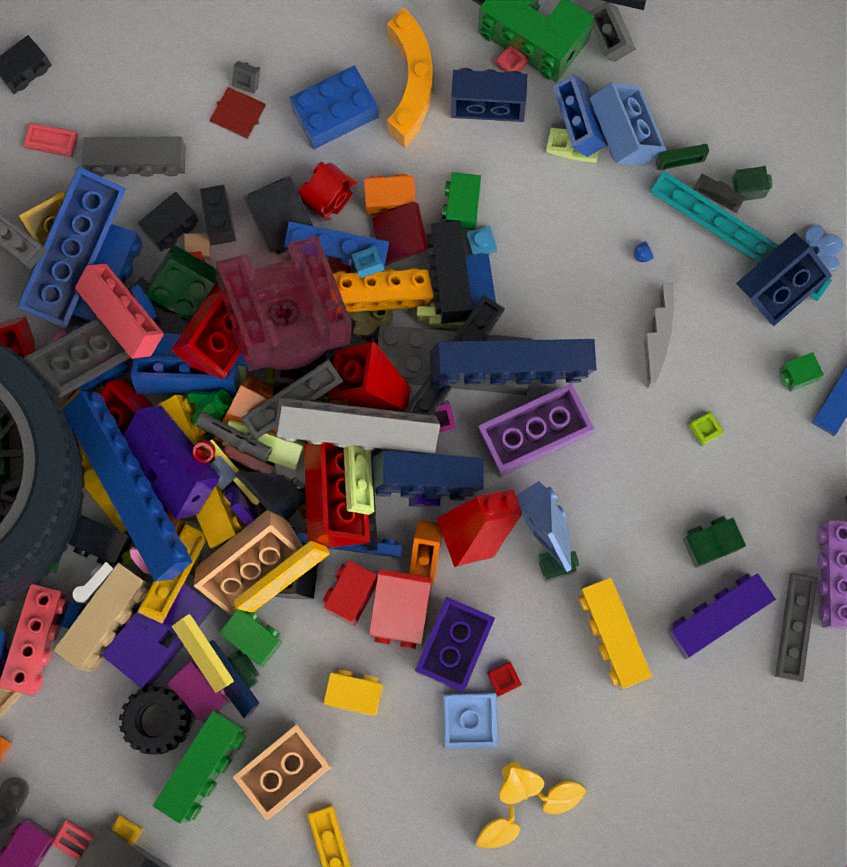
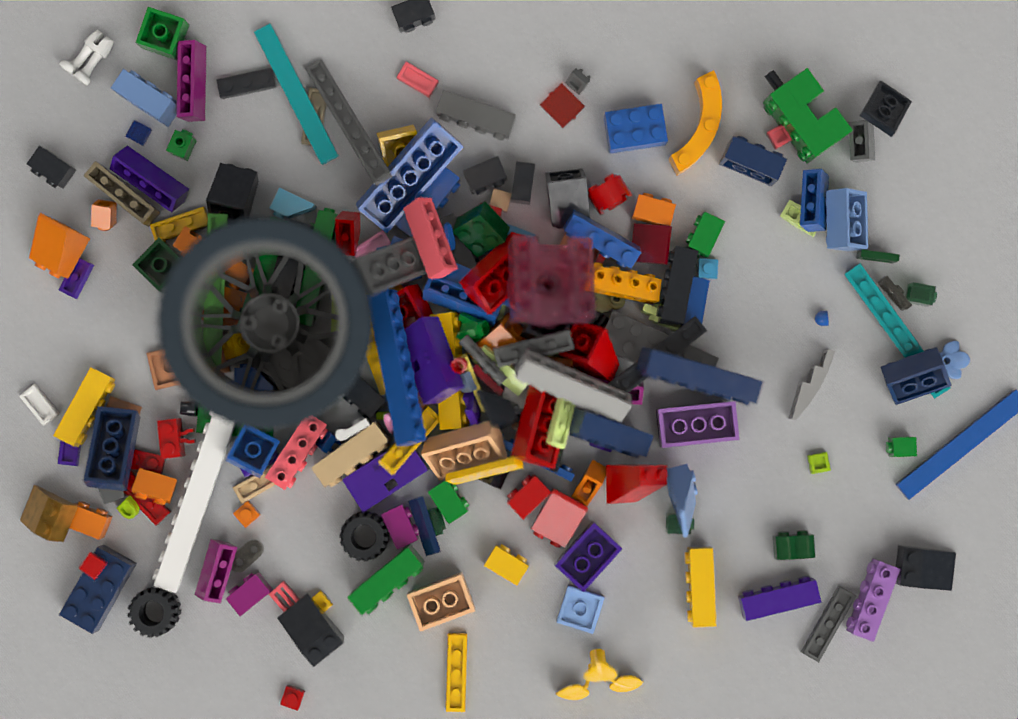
camera: 15 degrees right, 10 degrees up
(202, 653) = (412, 504): light yellow tile -> none
(367, 262) = (620, 264): dark azure plate -> none
(504, 679) = (613, 589): red tile -> none

